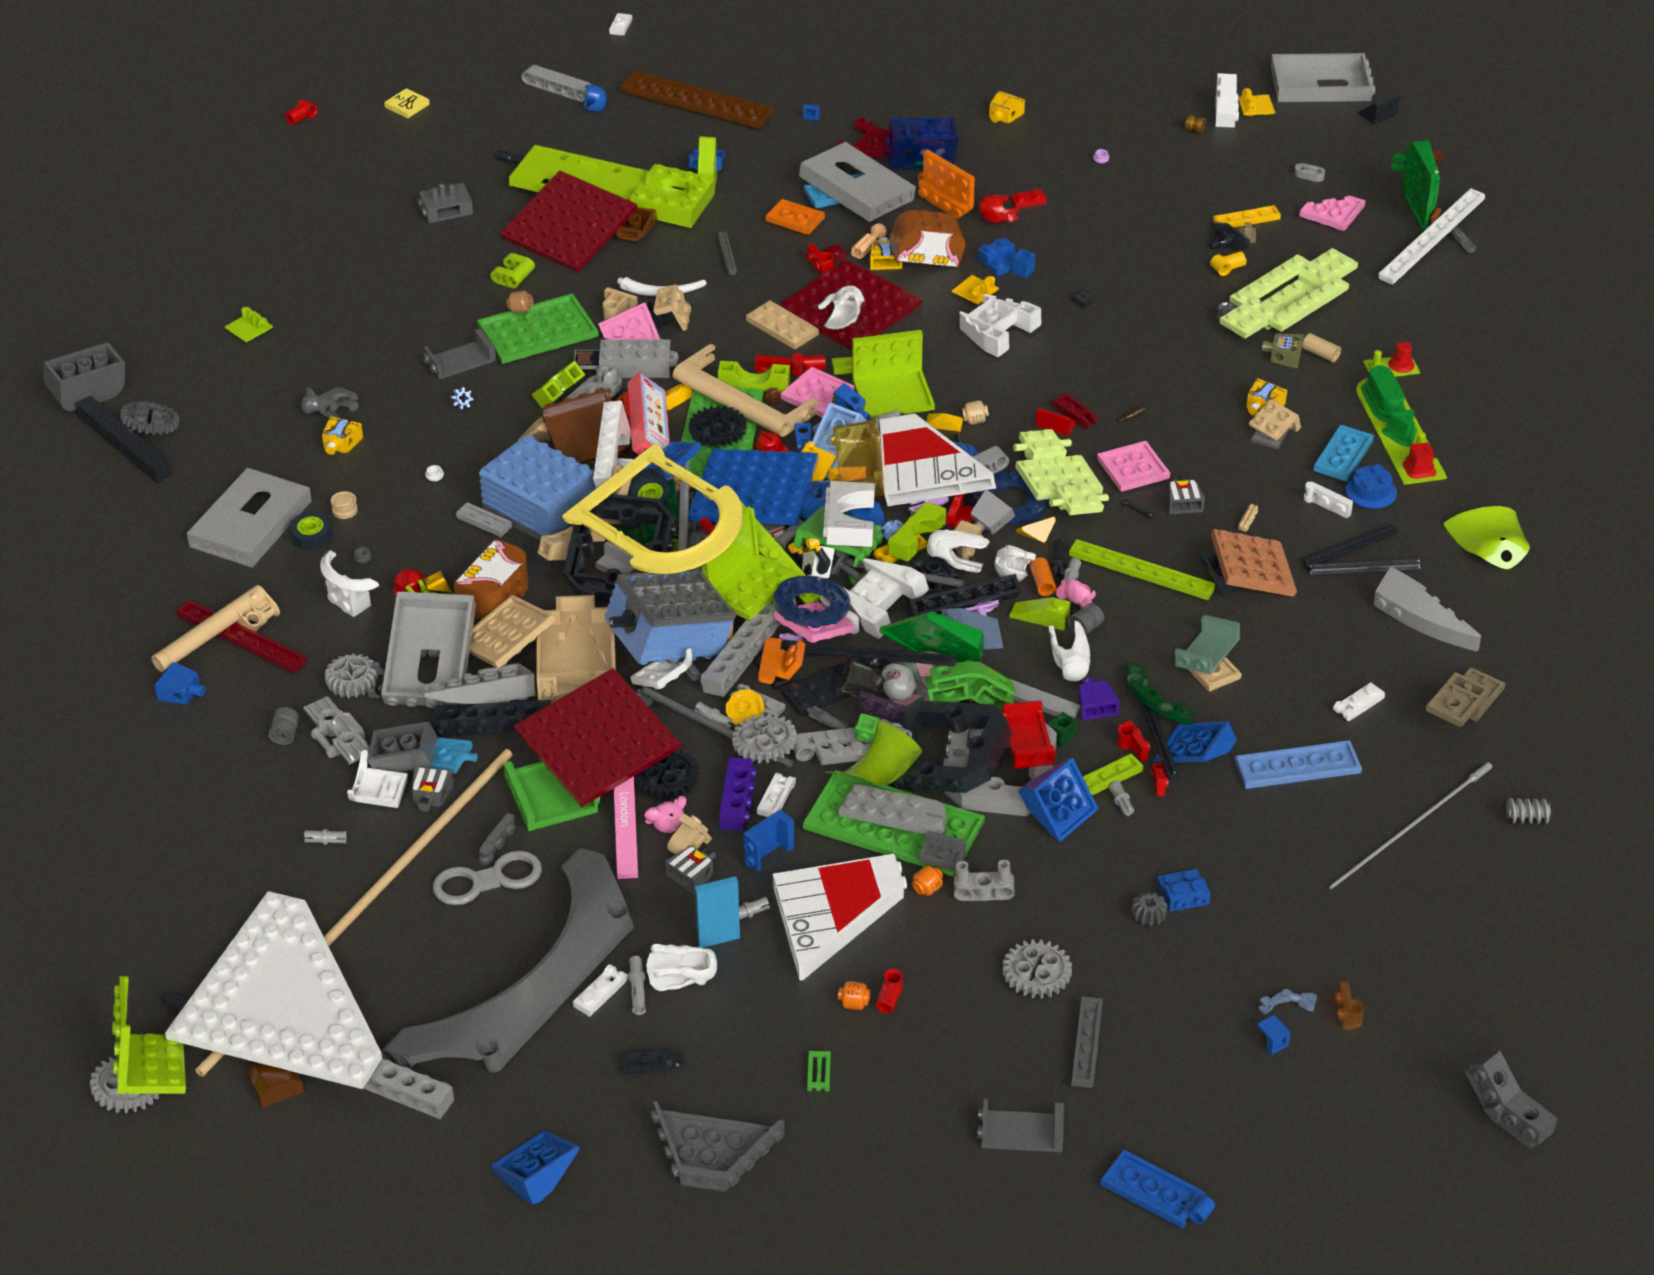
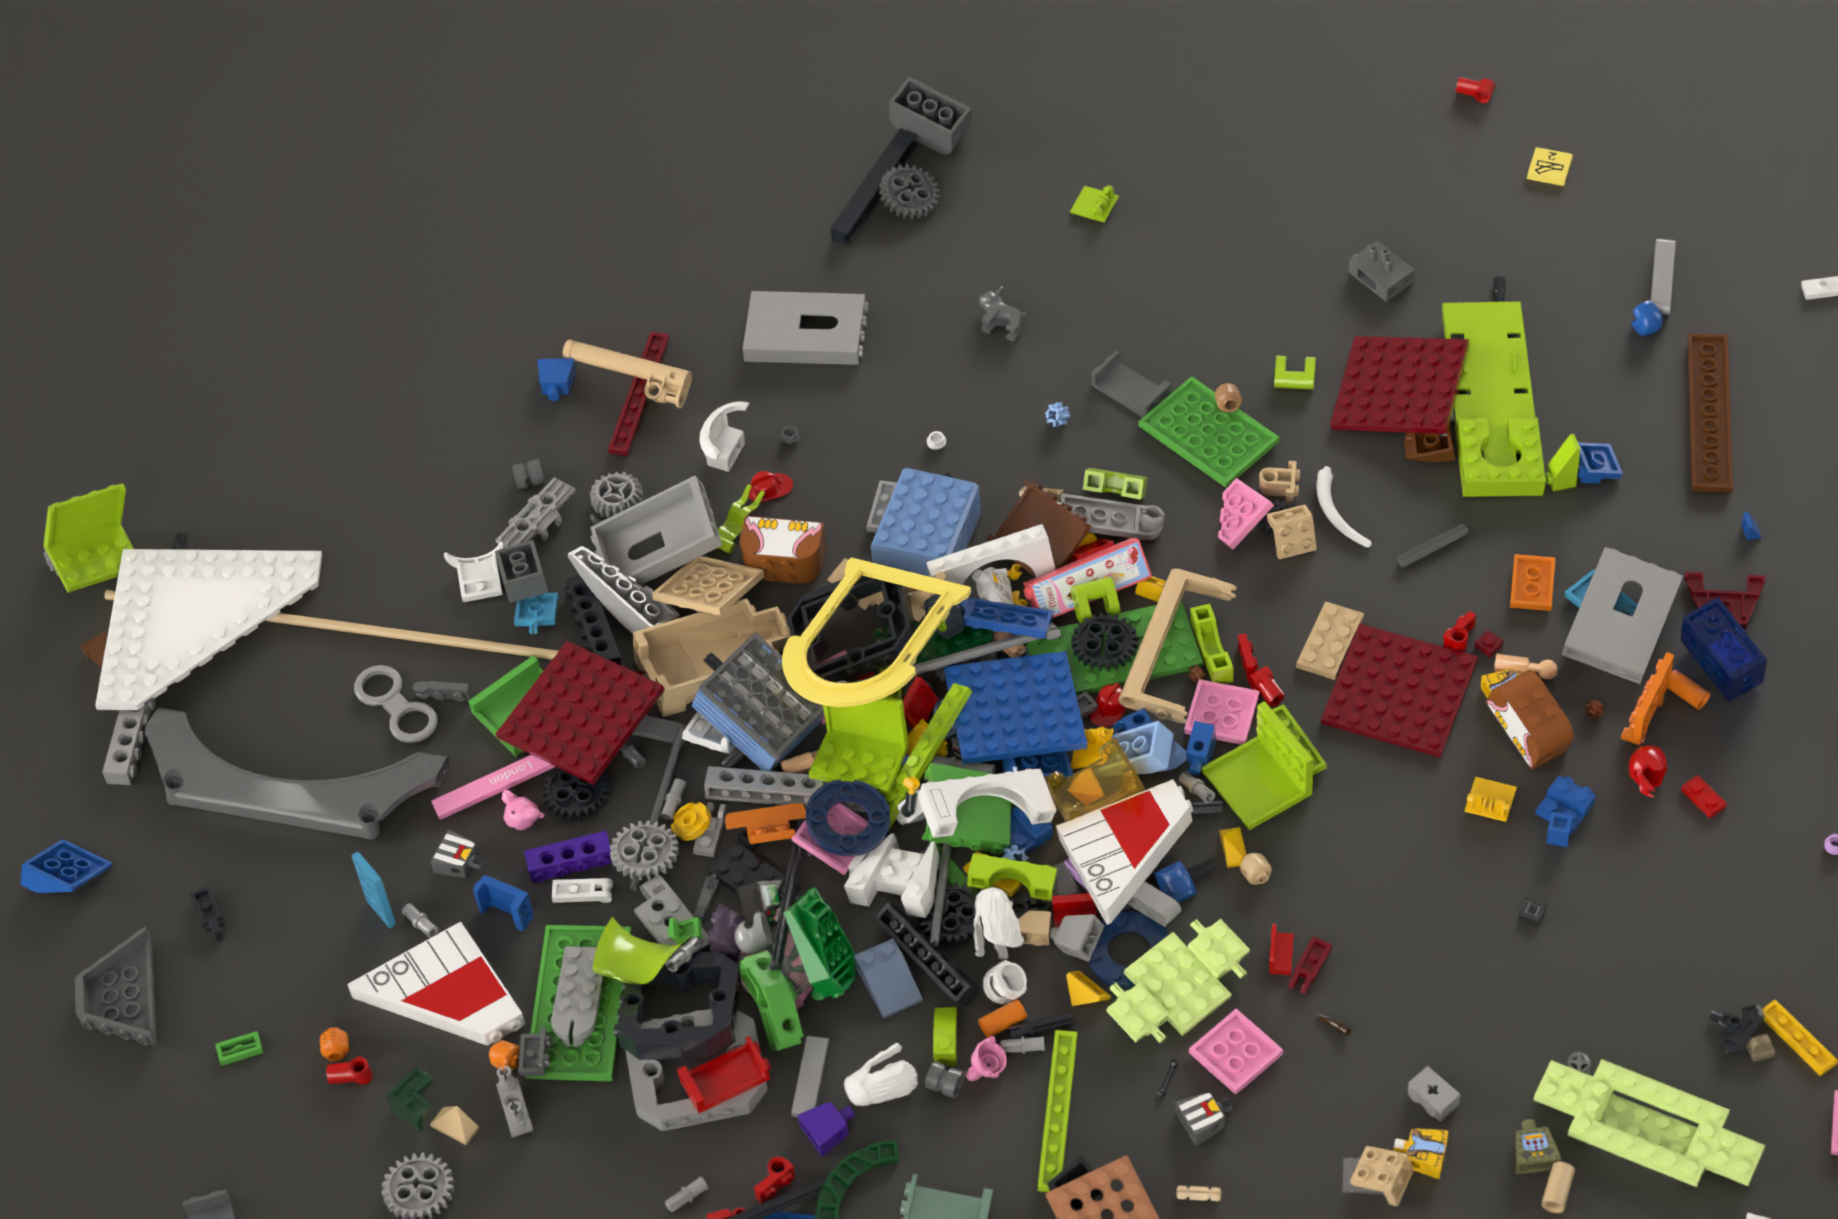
camera: 75 degrees right, 10 degrees up
(311, 531) = (805, 381): black wheel -> none
(325, 836) = (404, 564): light grey pin -> none
(341, 435) = (954, 344): yellow torso -> none
(344, 505) = (855, 390): tan wheel -> none
(431, 787) = (490, 615): dark grey torso -> none
(437, 582) = (771, 506): yellow slope -> none
(600, 990) = (285, 842): white plate -> none
(615, 558) = (864, 633): light grey panel -> none
(630, 357) = (1192, 526): light grey piece -> none
(637, 980) = (298, 867): light grey pin -> none
(668, 418) = (1092, 590): none -> lime connector
(679, 966) = (321, 890): white hair -> none
(689, 834) = (494, 838): tan pin -> none
(846, 307) = (1367, 684): white hair -> none
(944, 954) = (406, 1098): none -> clear green panel
(978, 933) = (455, 1124): none -> tan slope
(983, 608) = (925, 978): lavender piece -> none
(990, 320) = (1426, 831): white wedge -> none
(1059, 799) = (645, 1134): blue slope -> none
(1065, 727) = (766, 1100): dark green brick -> none
(1115, 771) = (710, 1169): lime plate -> none
(1218, 381) = (1433, 1093): none -> light grey brick
(1225, 264) = (1676, 1037): yellow piece -> none

